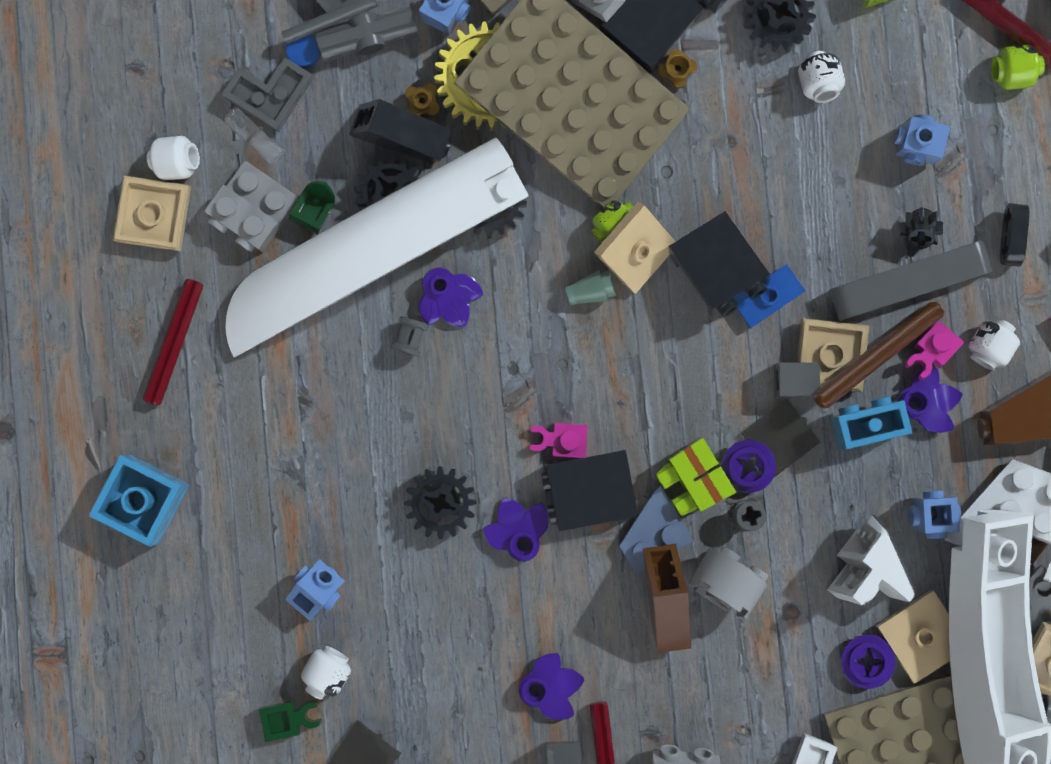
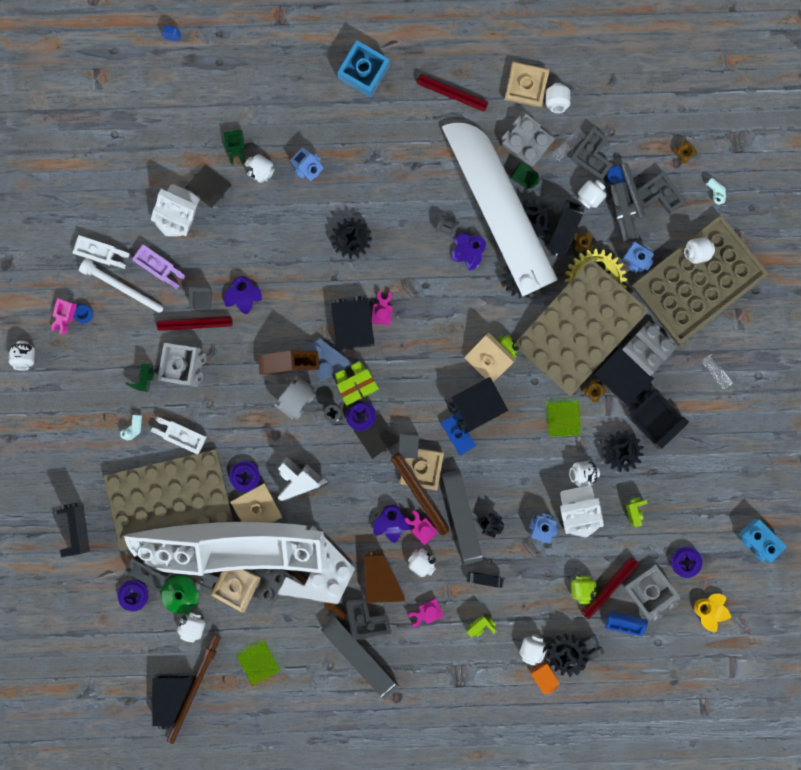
camera: 90 degrees right, 0 degrees up
(338, 90) = (592, 194): none -> white head
(515, 524) = (336, 281): dark purple plate -> none
(593, 288) = (469, 335): sand green cone -> none
(728, 118) = (563, 419): none -> clear neon green piece
(870, 425) = (380, 486): dark azure brick -> none
(885, 79) = (580, 511): none -> white piece
(946, 514) = (317, 519): medium blue brick -> none

